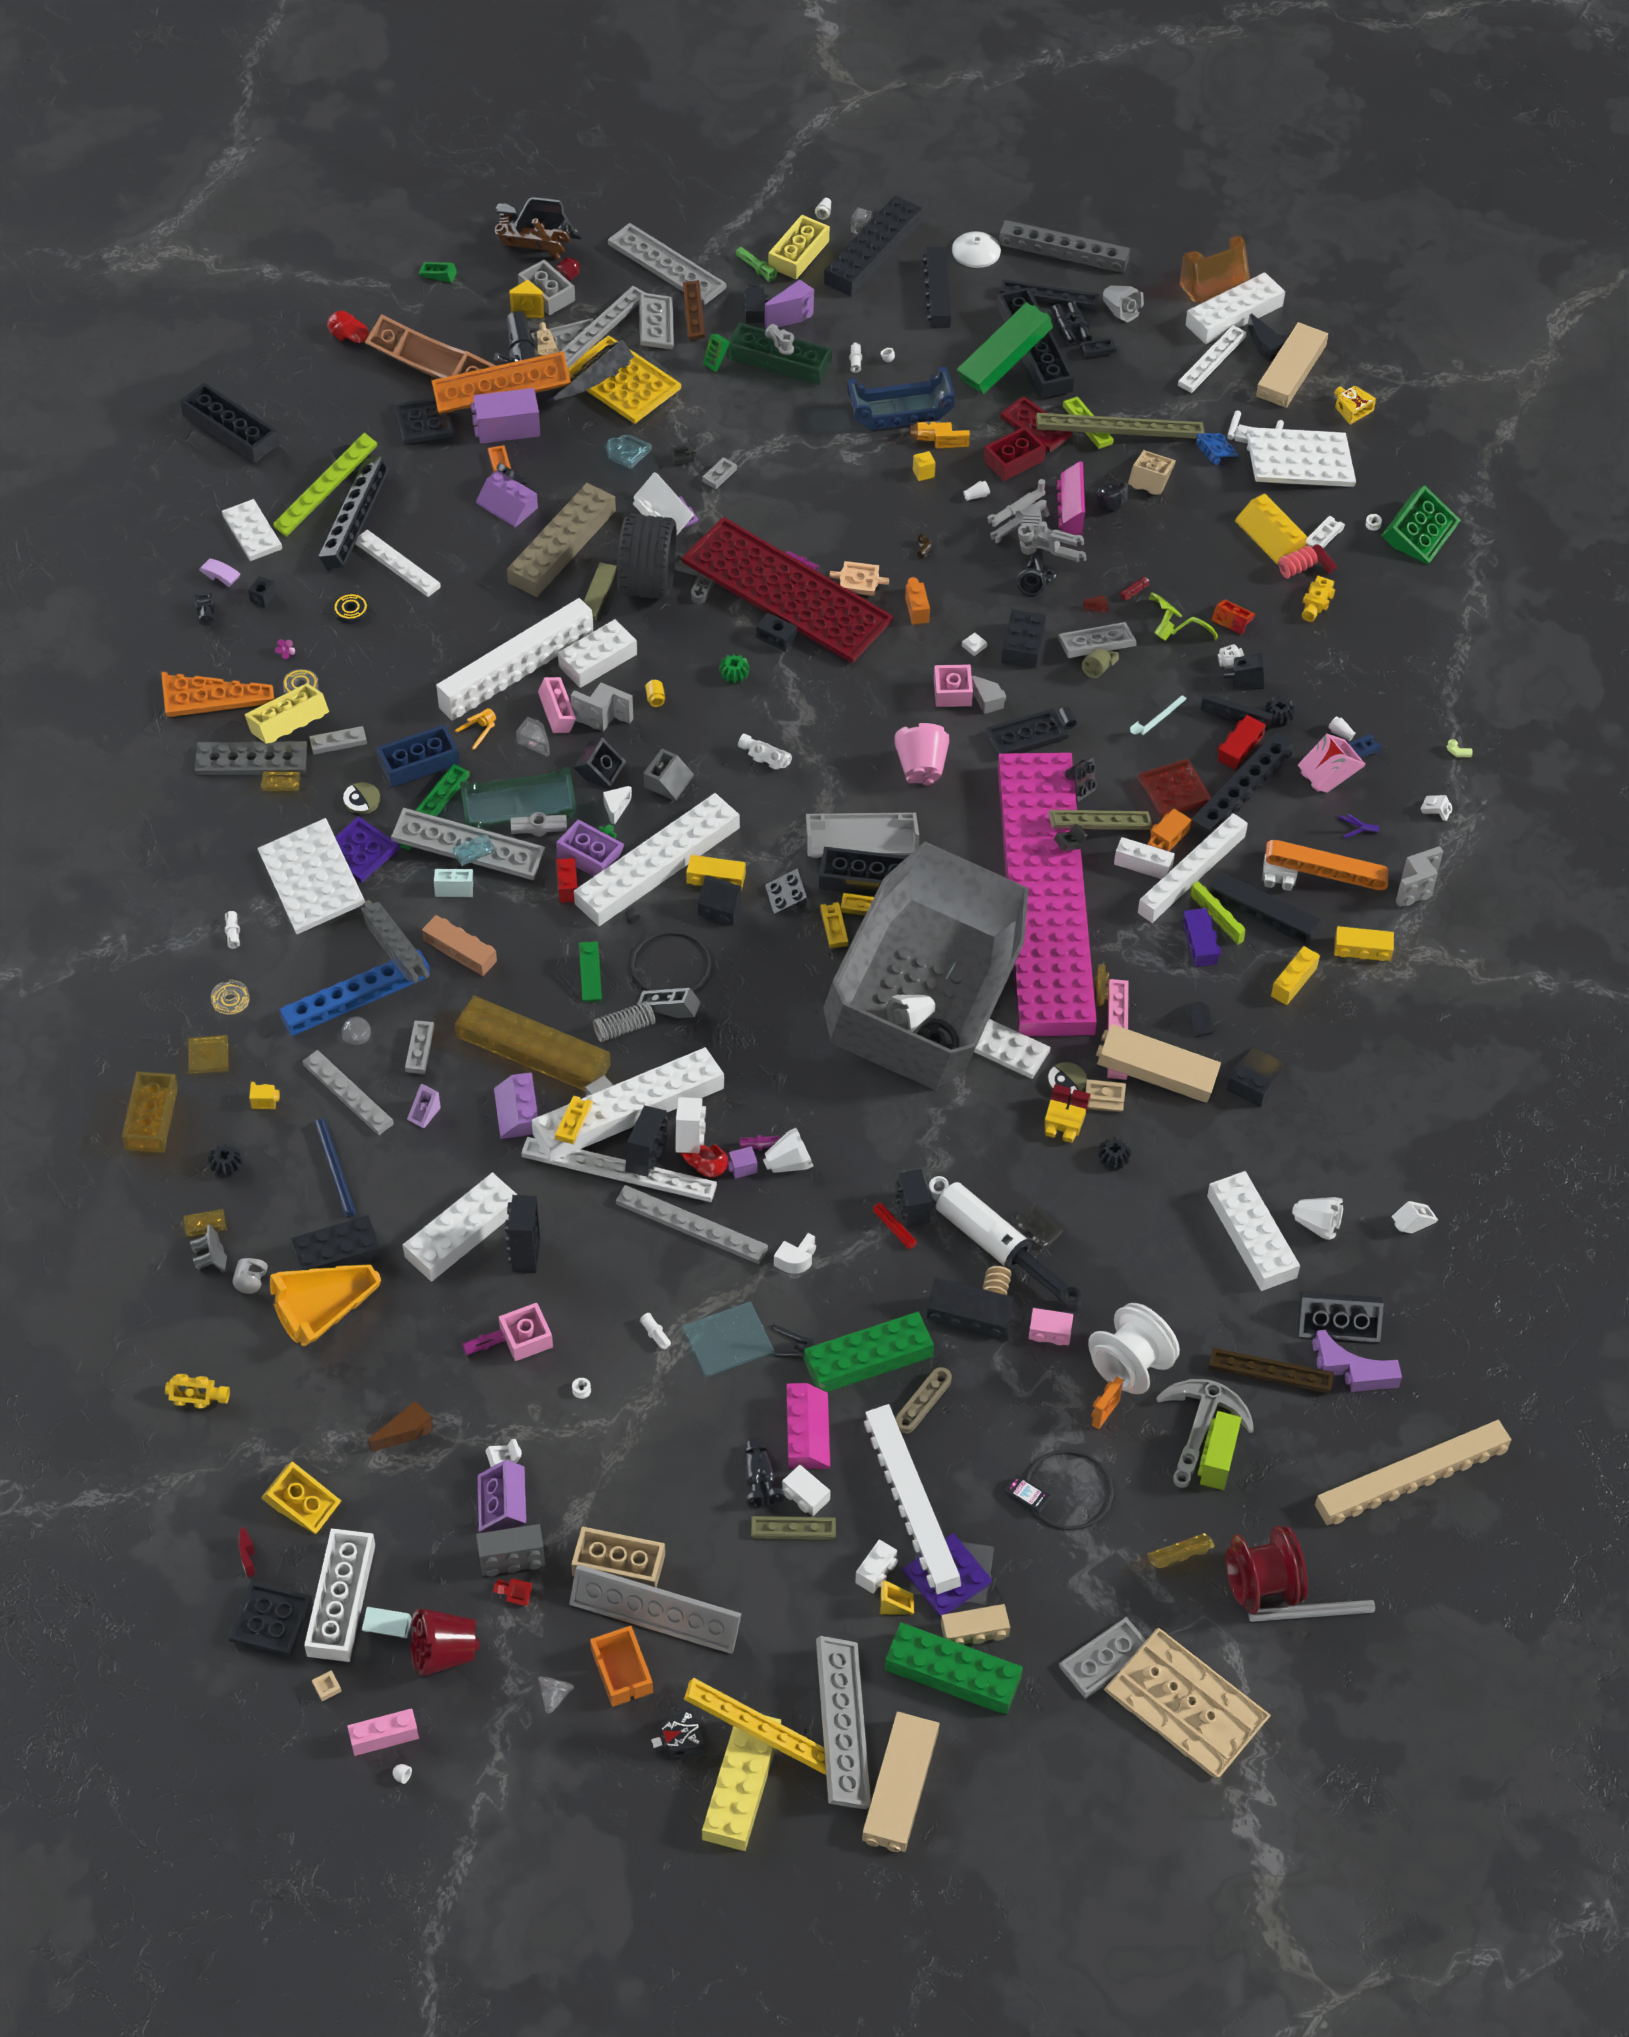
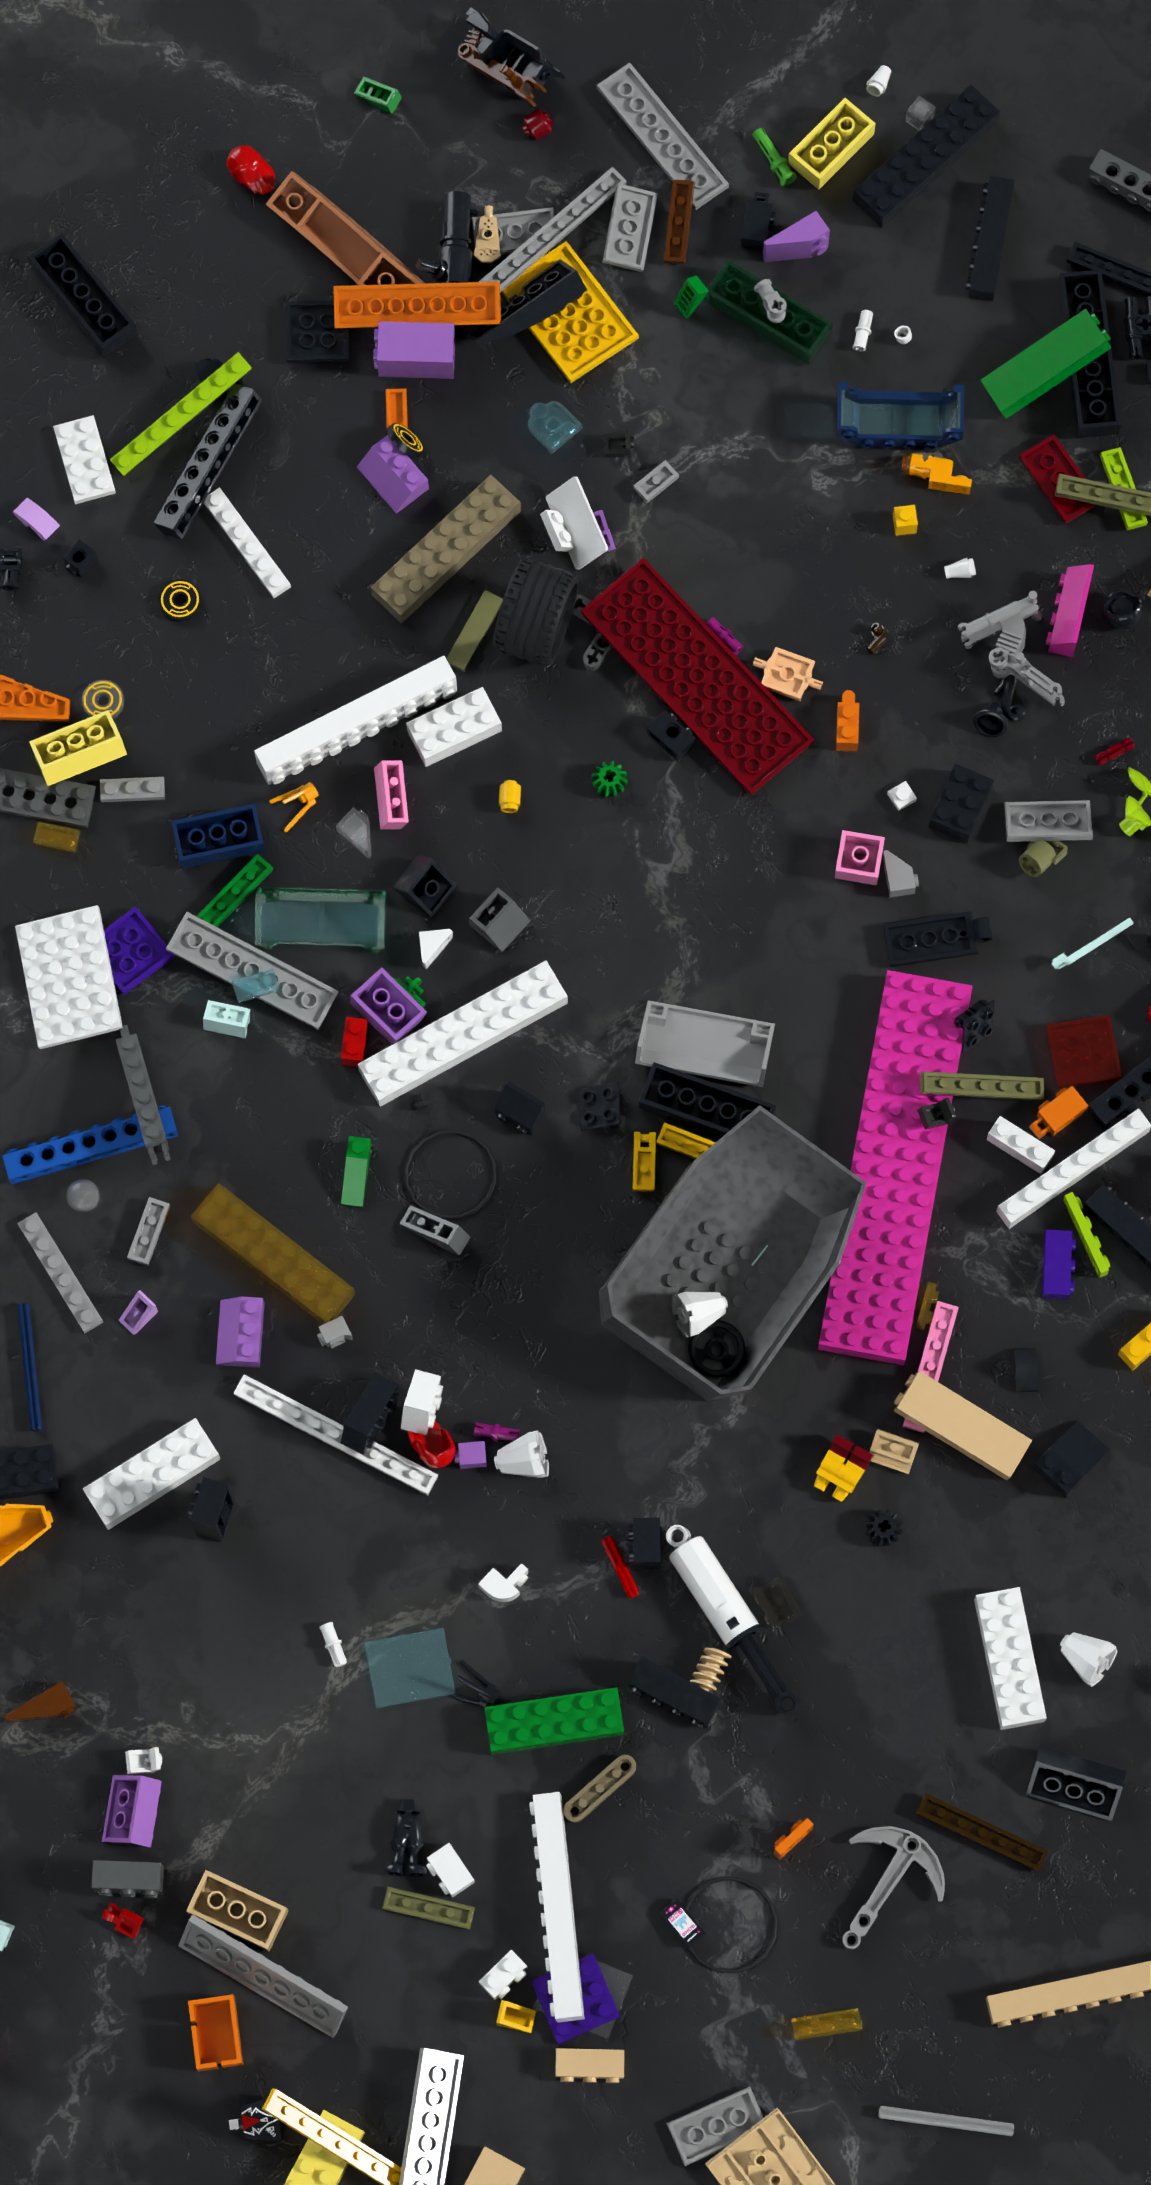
camera: 15 degrees right, 20 degrees up
(285, 648) = (94, 646): magenta plant -> none
(361, 798) = (145, 877): tile -> none
(441, 1641) = (37, 1968): dark red cone -> none
(459, 945) = (217, 1105): nougat brick -> none
(497, 1337) = (148, 1619): magenta pin -> none
(526, 1331) = (194, 1620): bright pink brick -> none
(527, 299) = (475, 172): yellow slope -> none
(538, 824) = (352, 958): light grey piece -> none
(553, 1692) = (142, 2042): clear hat -> none
(556, 289) = (504, 151): light grey brick -> none
(573, 1120) = (293, 1379): yellow plate -> none
(576, 1391) = (246, 1700): white bush -> none
(602, 707) = (441, 810): light grey bracket -> none
(621, 1104) = (359, 1356): white brick -> none
(648, 1013) = (406, 1235): light grey piece -> none
(692, 1224) = (400, 1519): light grey plate -> none
(717, 868) = (525, 1065): yellow brick -> none
(765, 752) = (621, 913): white brick -> none
(807, 1427) = (469, 1795): dark pink slope -> none
(922, 752) = (798, 954): bright pink cone -> none
(953, 1668) = (555, 2107): green brick -> none
(976, 249) = (1055, 192): white dish -> none
(1011, 1049) = (807, 1369): white plate -> none
(1014, 453) = (1019, 523): dark red brick -> none
(1050, 1326) = (757, 1730): bright pink brick -> none
(1067, 1075) = (857, 1420): tile -> none
(1096, 603) = (1062, 765): clear red piece -> none
(1139, 1343) = (833, 1787): white wheel -> none
(1219, 1450) = (897, 1920): lime brick -> none
(1267, 1569) = (904, 2077): dark red wheel -> none
(1359, 1372) = (1078, 1856): medium lavender arch -> none

